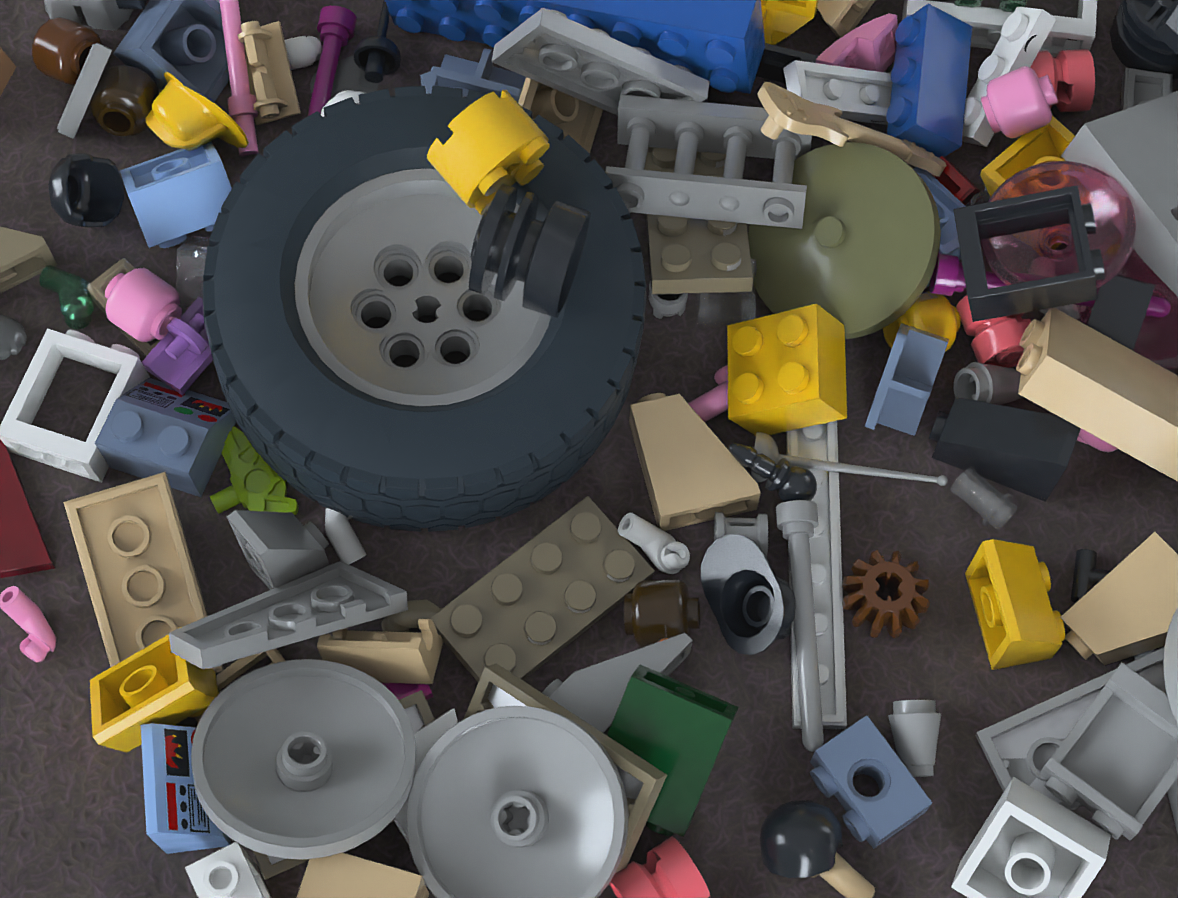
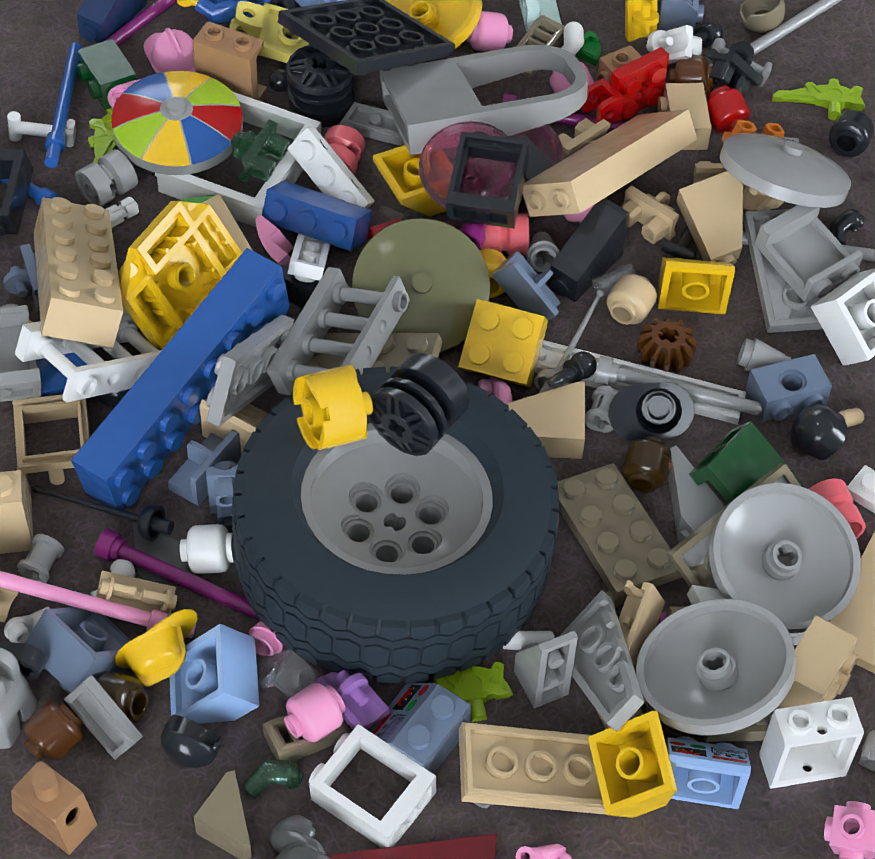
camera: 75 degrees left, 15 degrees down
(660, 547) = (595, 457): white arm -> none
(809, 118) = (349, 258): tan piece -> none
(948, 525) = (631, 299): none -> tan head
(1019, 102) = (365, 162): bright pink head -> none
(1131, 494) = (652, 212): none -> tan hips

